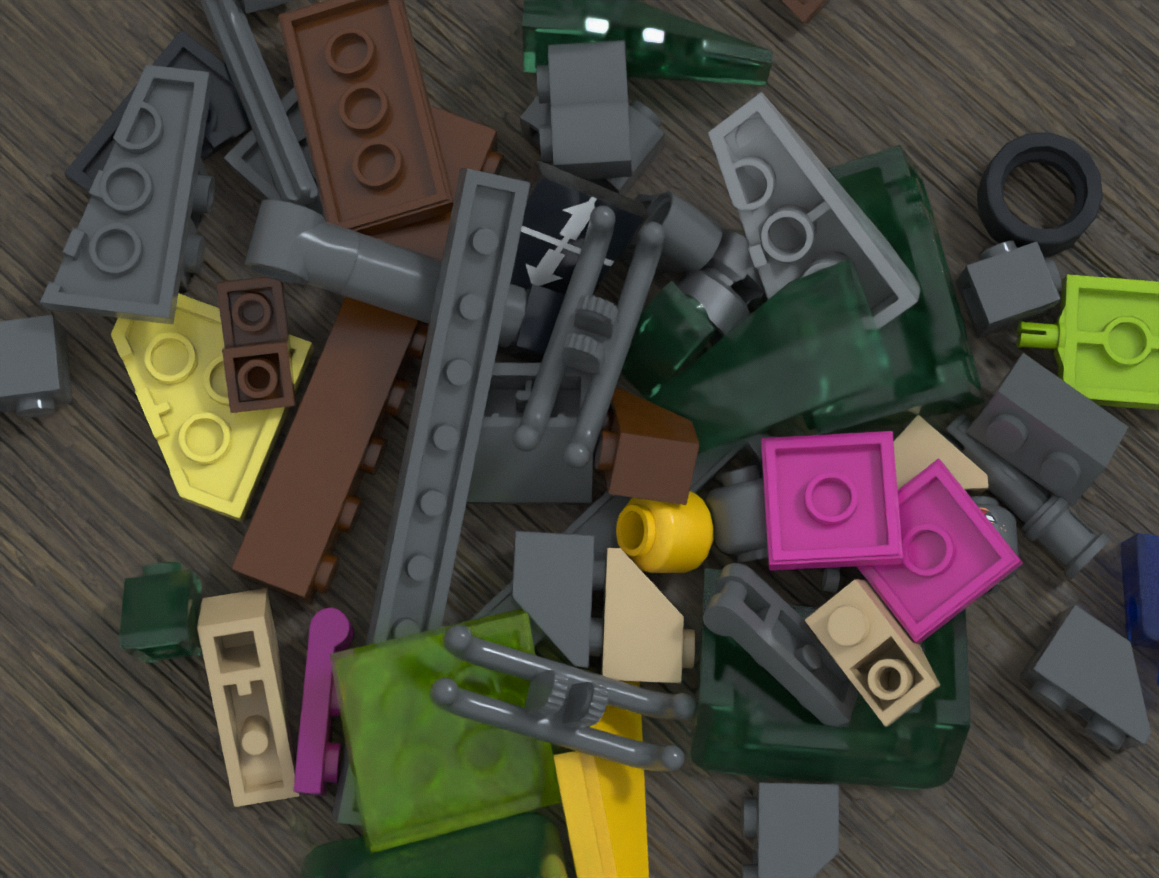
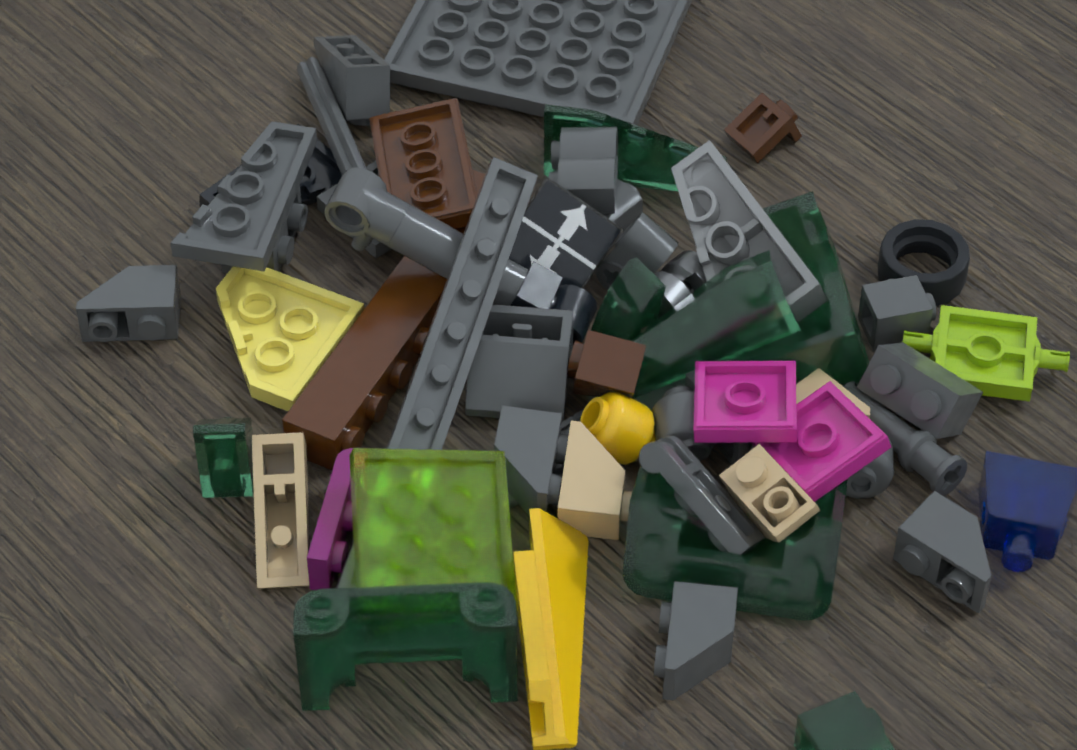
camera: 10 degrees right, 30 degrees down
(256, 344) = (323, 293): reddish brown slope -> none
(560, 703) = (520, 504): dark grey piece -> none
(591, 337) = (573, 285): dark grey piece -> none

